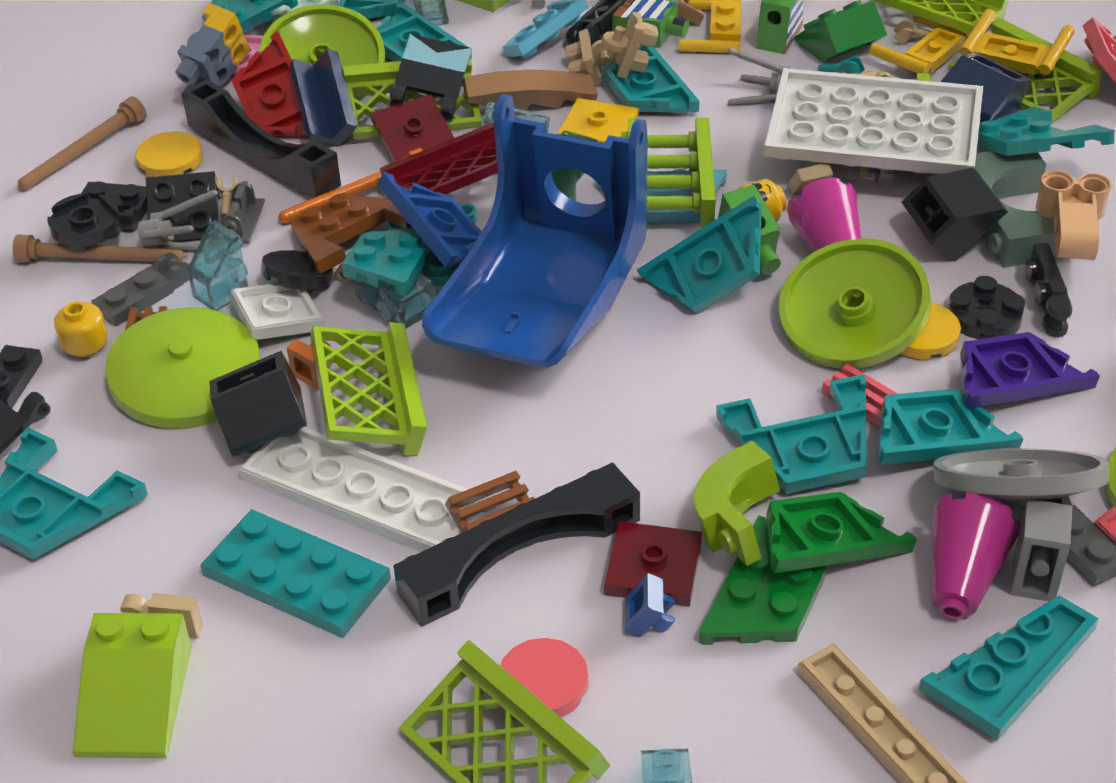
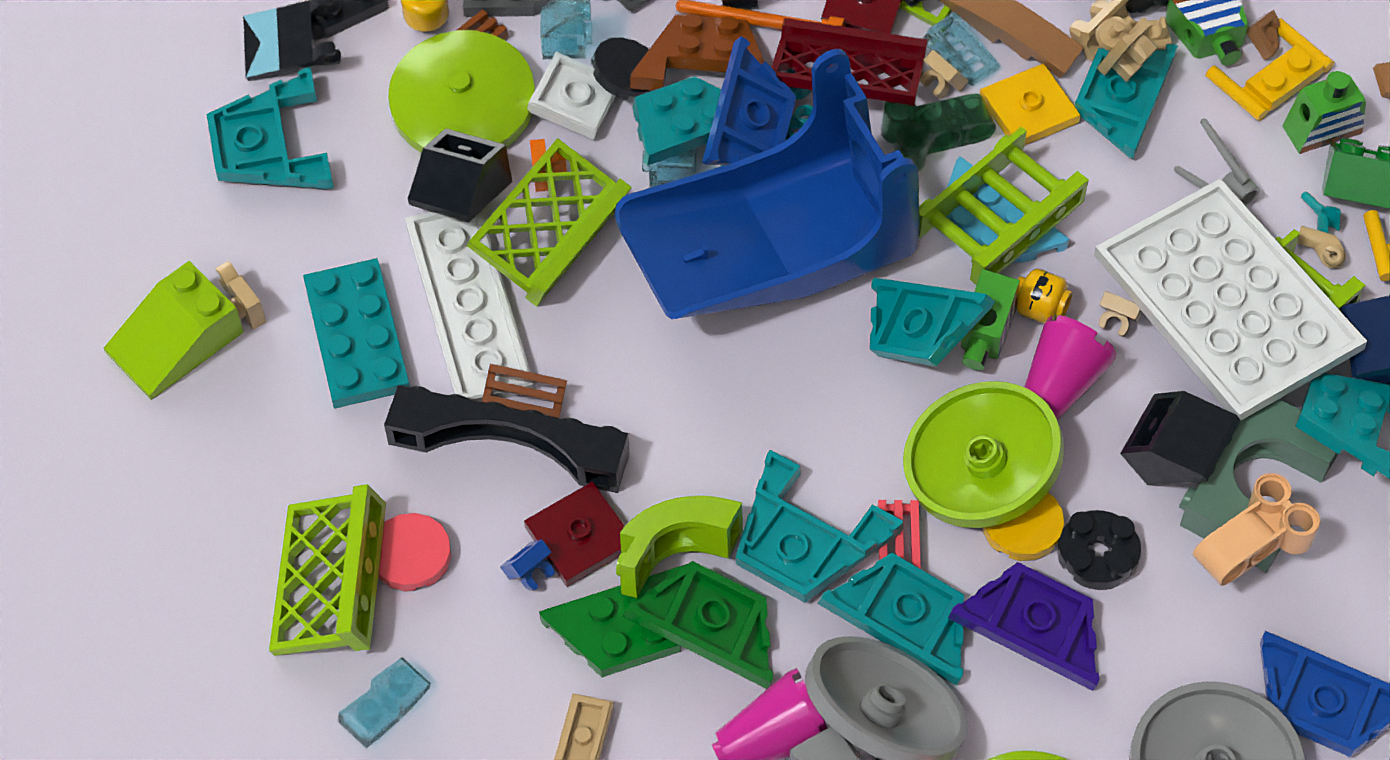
camera: 45 degrees right, 15 degrees up
(1049, 290) = (1163, 581): black hinge -> none

